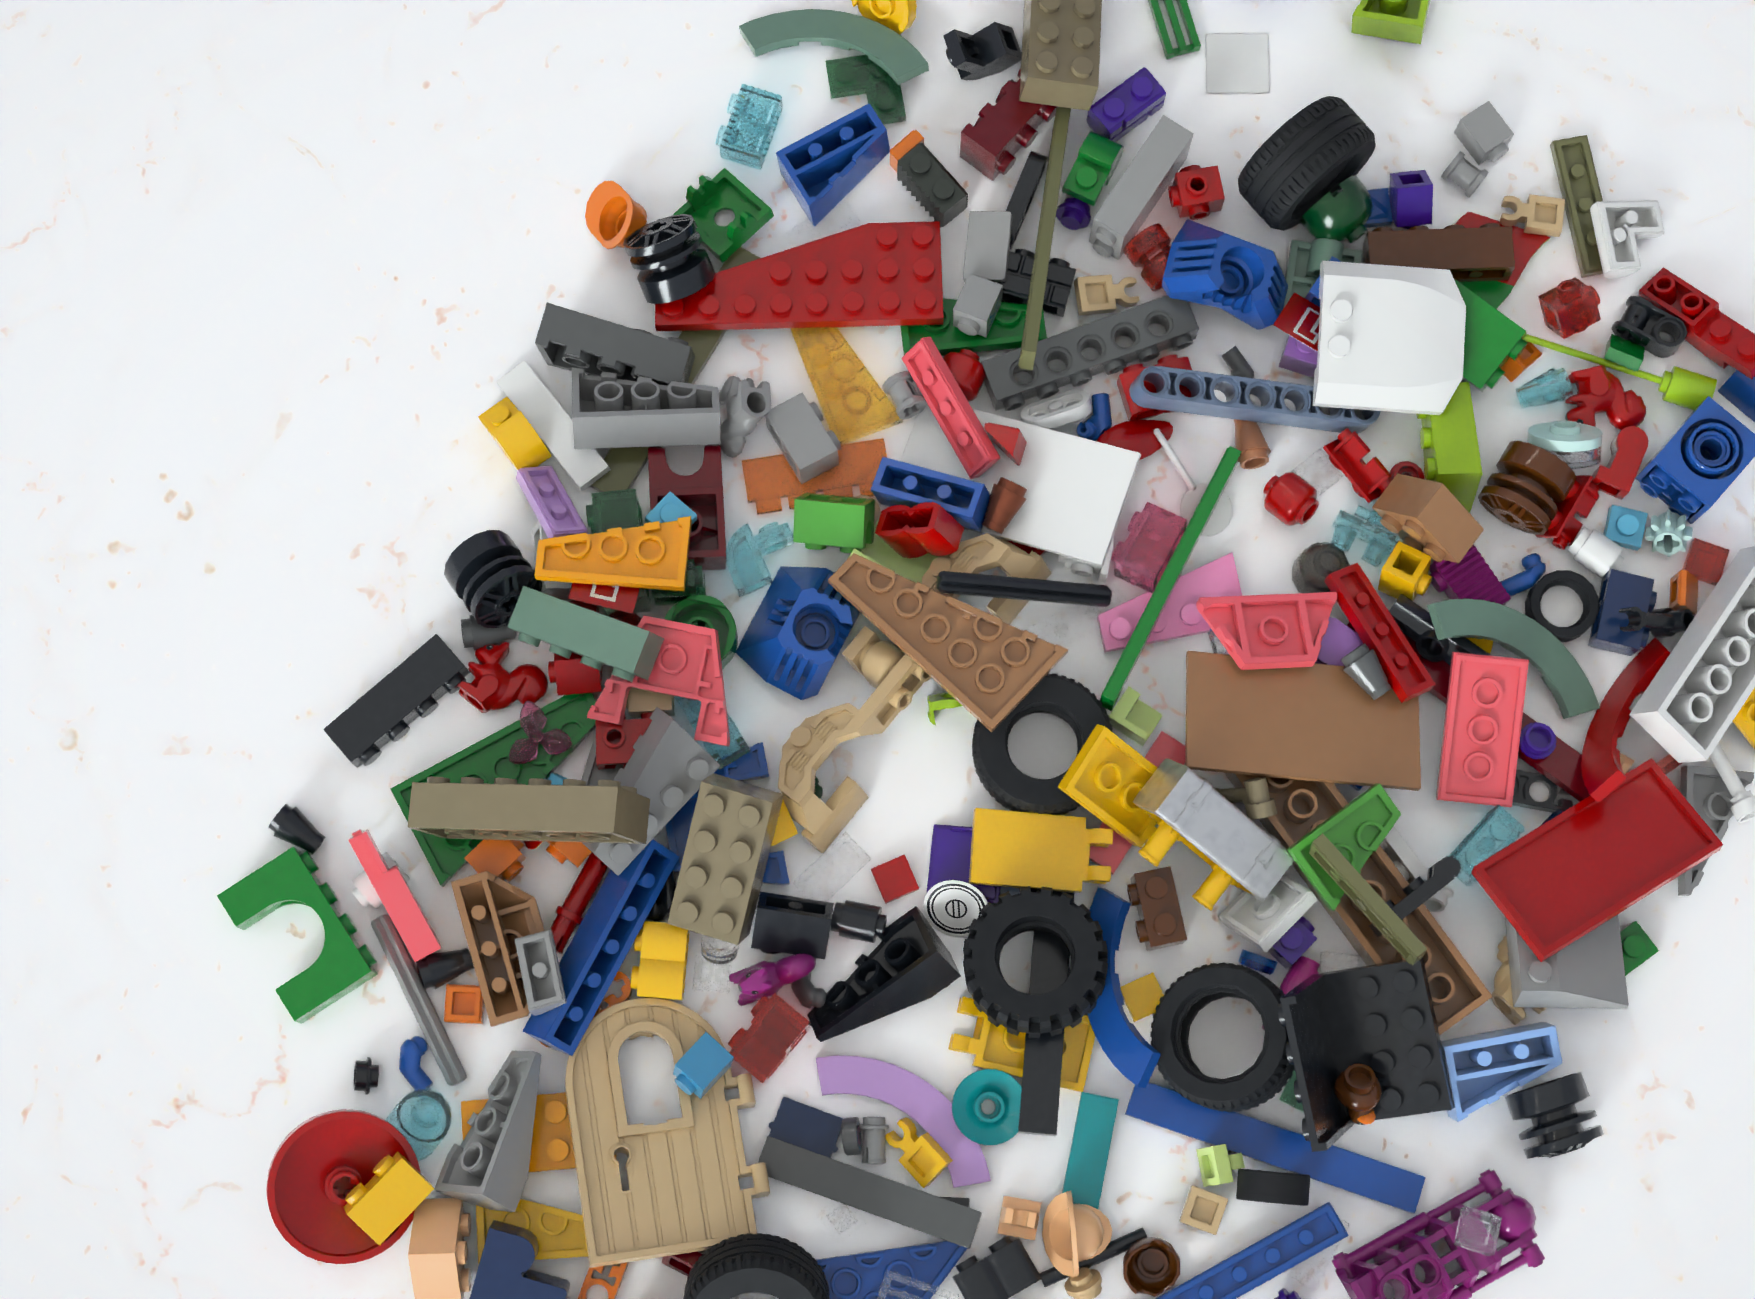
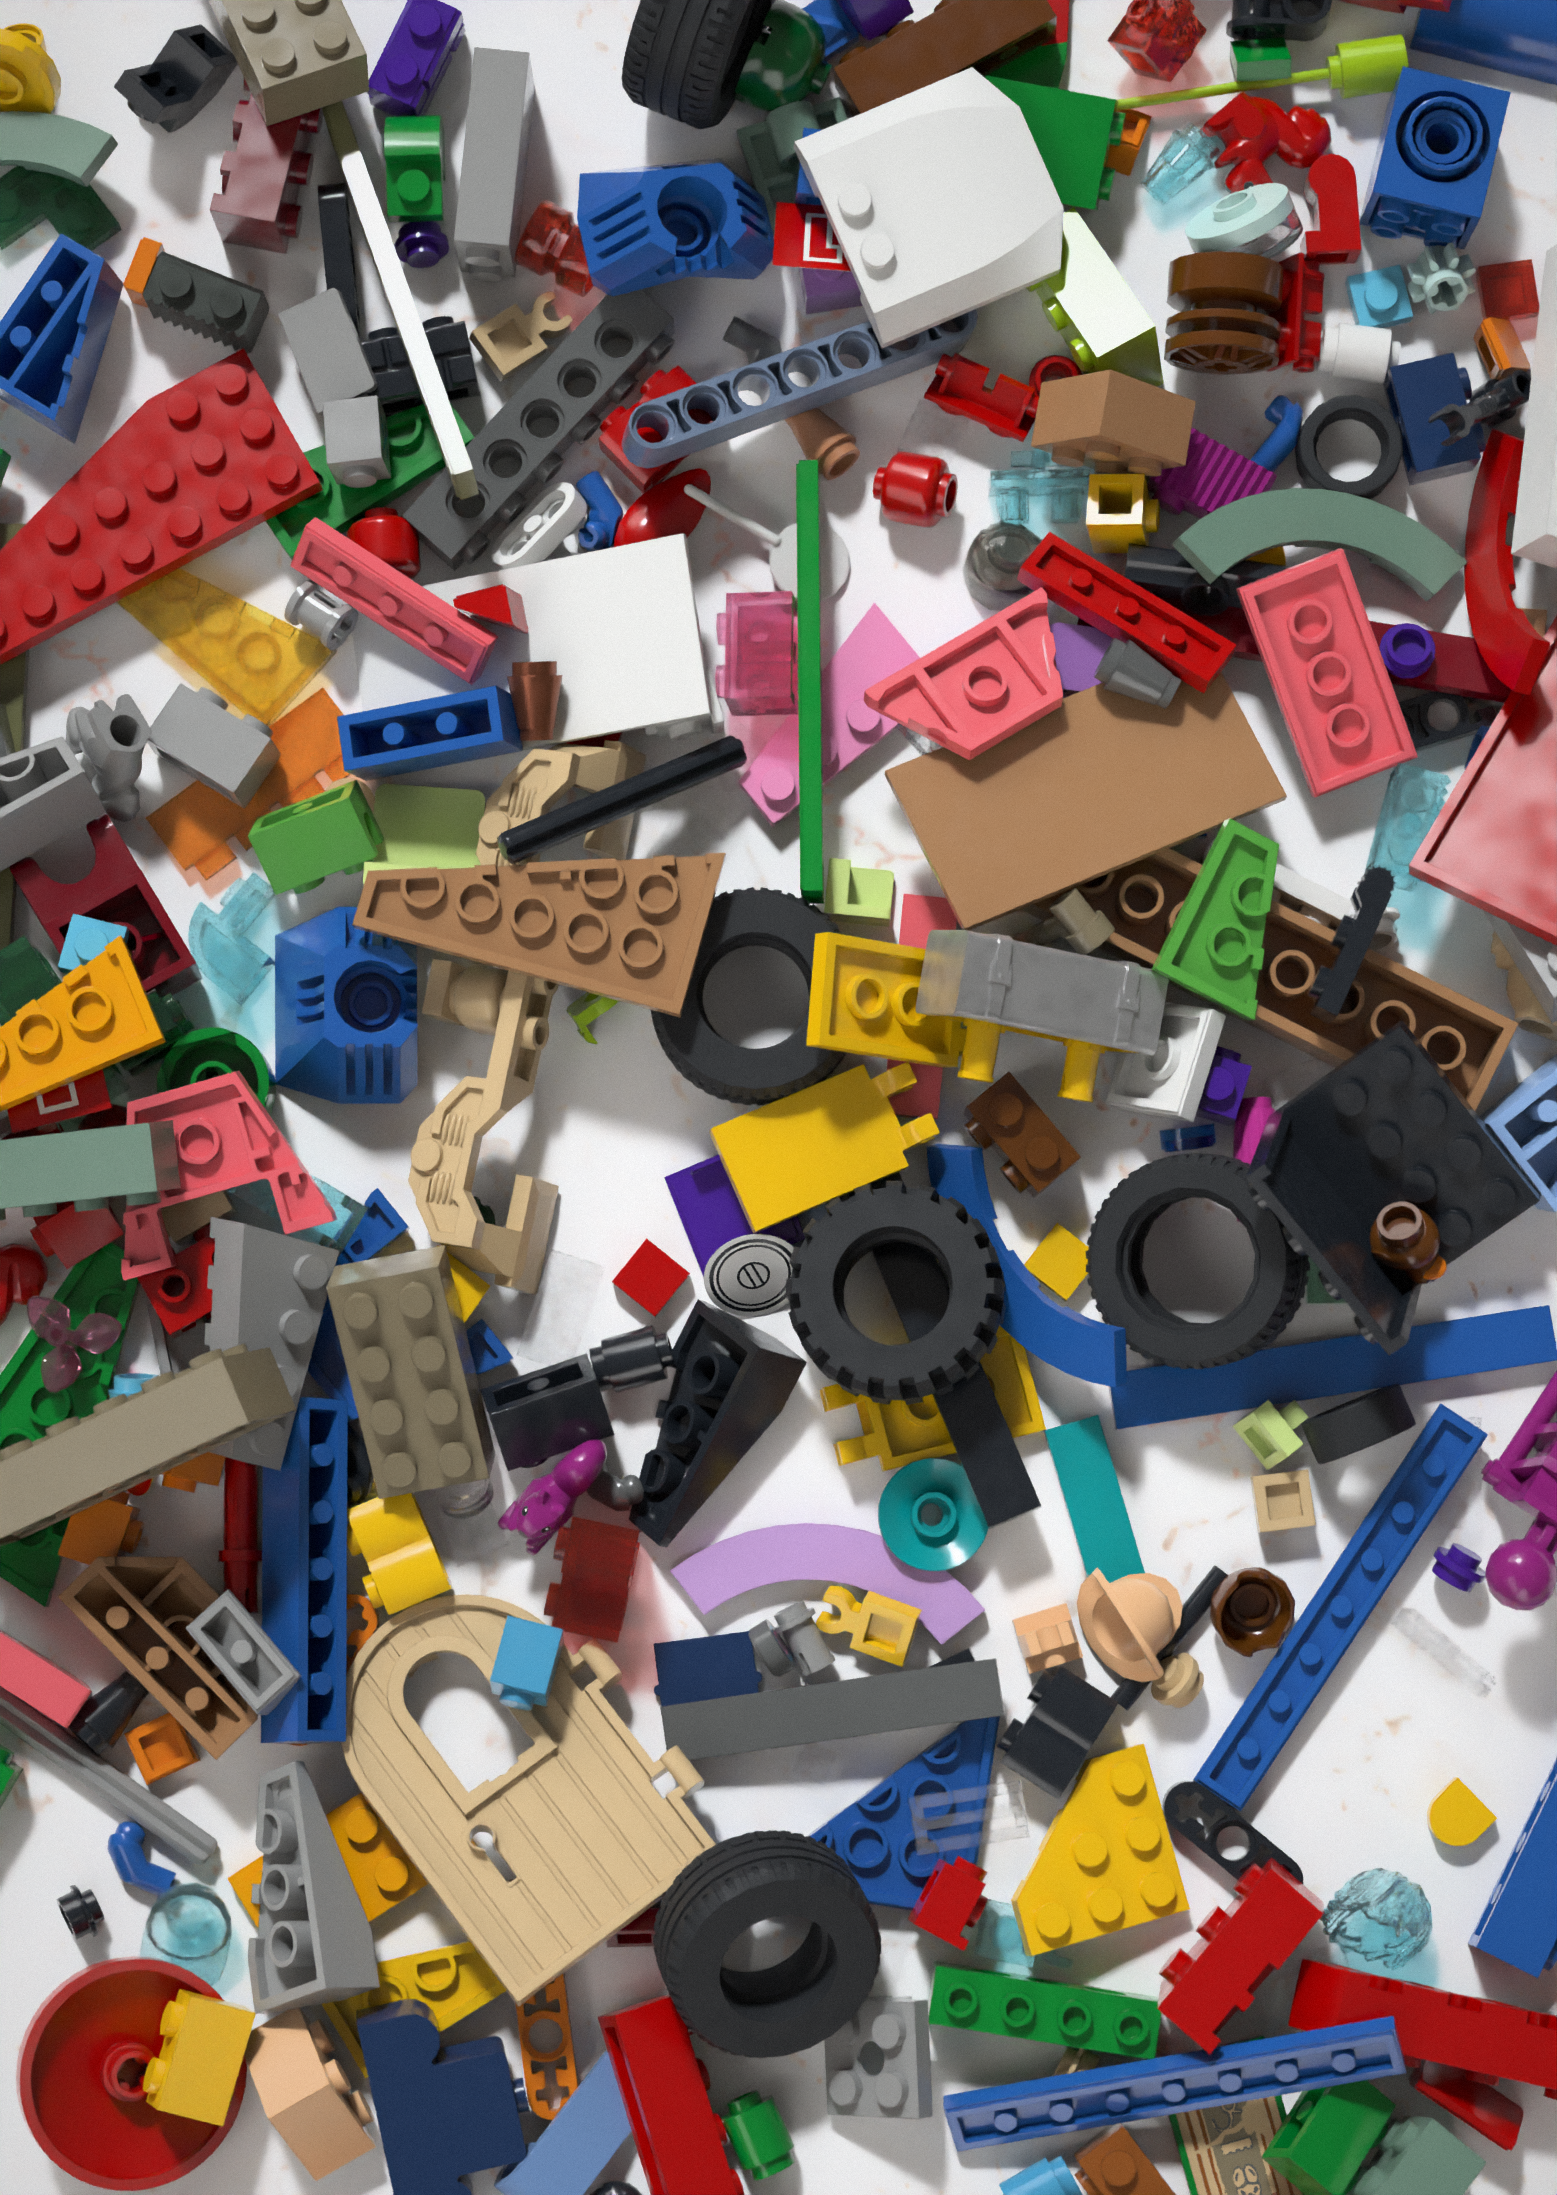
camera: 30 degrees left, 5 degrees up
(919, 530) = (440, 792): red brick -> none
(1197, 192) = (573, 128): red brick -> none
(1367, 900) = (1292, 984): olive tile -> none

